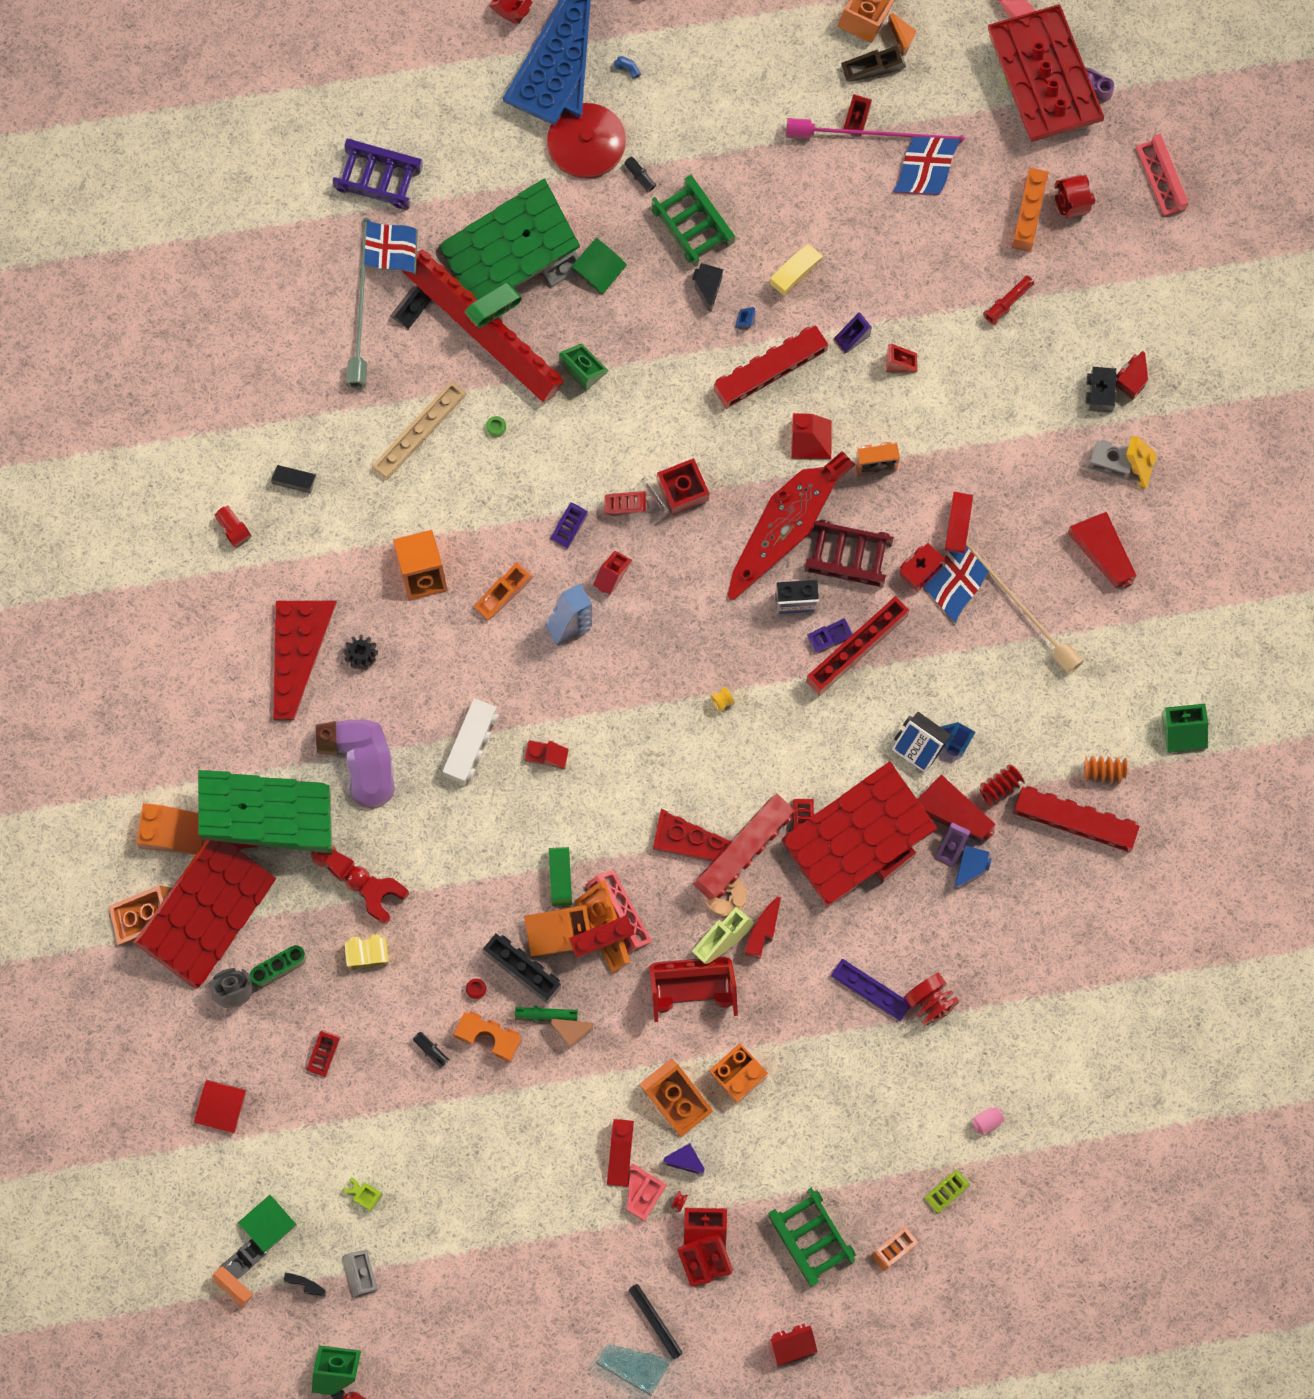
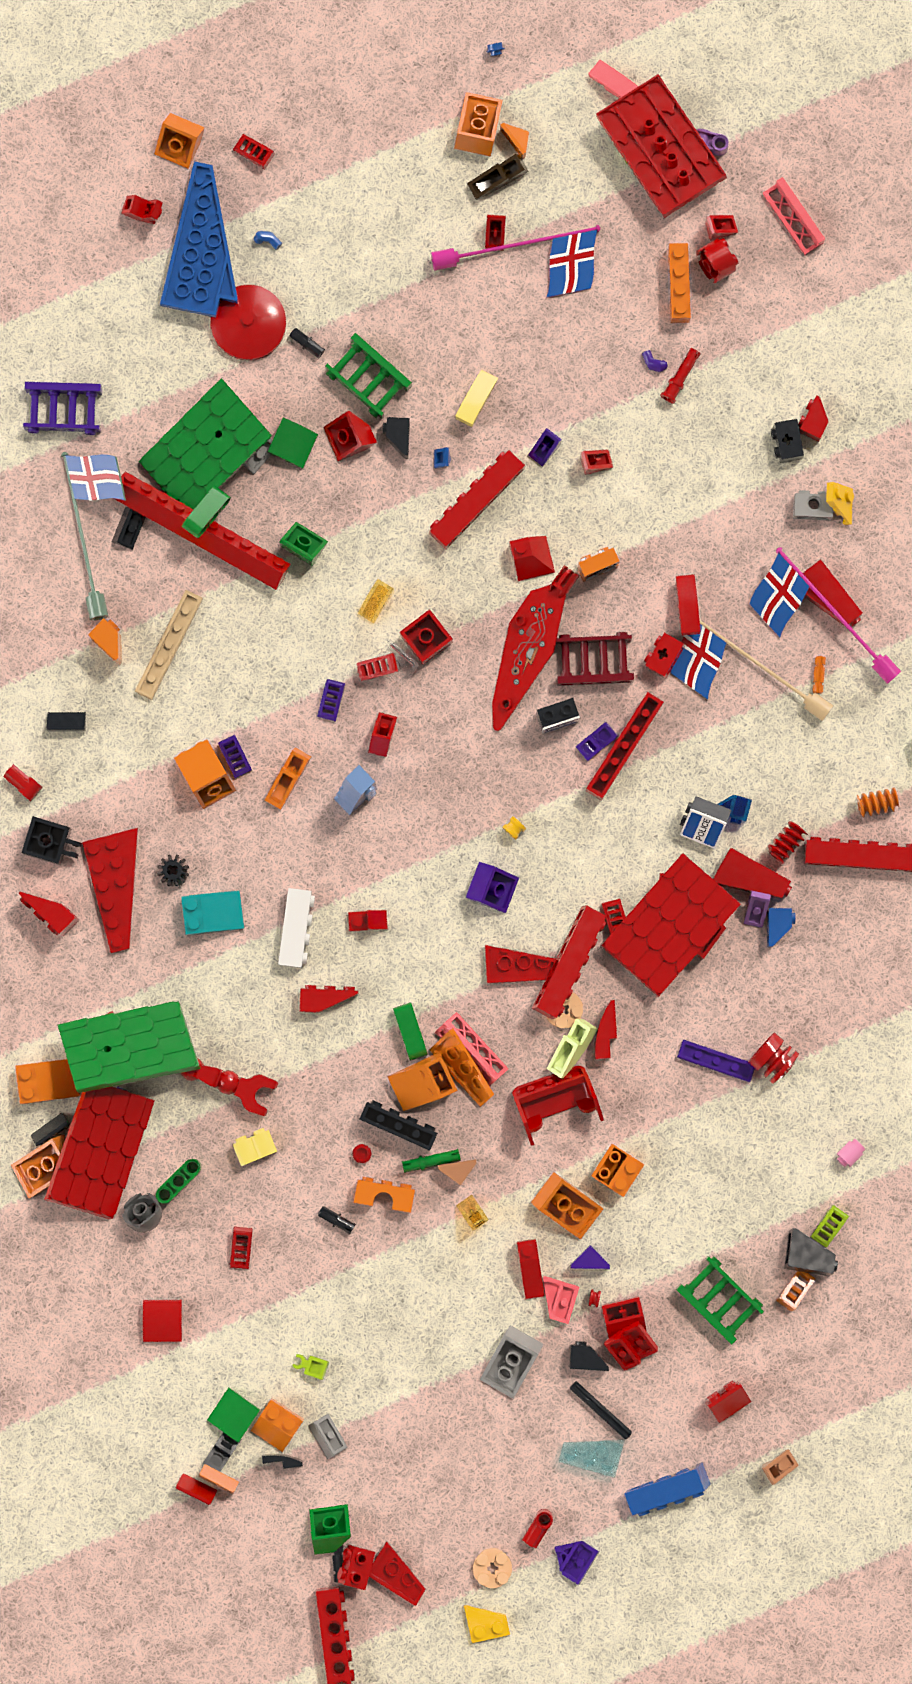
camera: 10 degrees left, 10 degrees up
(165, 878) = (50, 1129): none -> black slope
(206, 1291) = (196, 1489): none -> red slope
(229, 664) = (56, 914): none -> red slope
(247, 599) = (59, 839): none -> black hinge
(309, 1246) = (277, 1425): none -> orange slope
(358, 405) = (107, 637): none -> orange slope
(367, 758) = (205, 967): medium lavender piece -> none
(389, 704) = (212, 912): none -> teal slope
(452, 539) = (227, 741): none -> dark purple slope
(477, 820) = (318, 1000): none -> red slope
(496, 426) = (238, 622): bright green tile -> none
(574, 1244) = (511, 1361): none -> light grey slope
(575, 1079) = (472, 1212): none -> clear yellow slope
(601, 936) = (462, 1080): red plate -> none
(642, 439) = (376, 601): none -> clear yellow slope
(654, 1261) = (585, 1358): none -> black slope
(658, 272) = (349, 435): none -> red slope
(684, 752) = (492, 887): none -> dark purple slope
(917, 1215) = (808, 1256): none -> slope
(983, 281) = (654, 364): none -> dark purple arm
(1058, 536) = (783, 593): none -> flag
(1076, 627) = (819, 672): none -> orange axle
(1086, 164) = (720, 226): none -> red slope

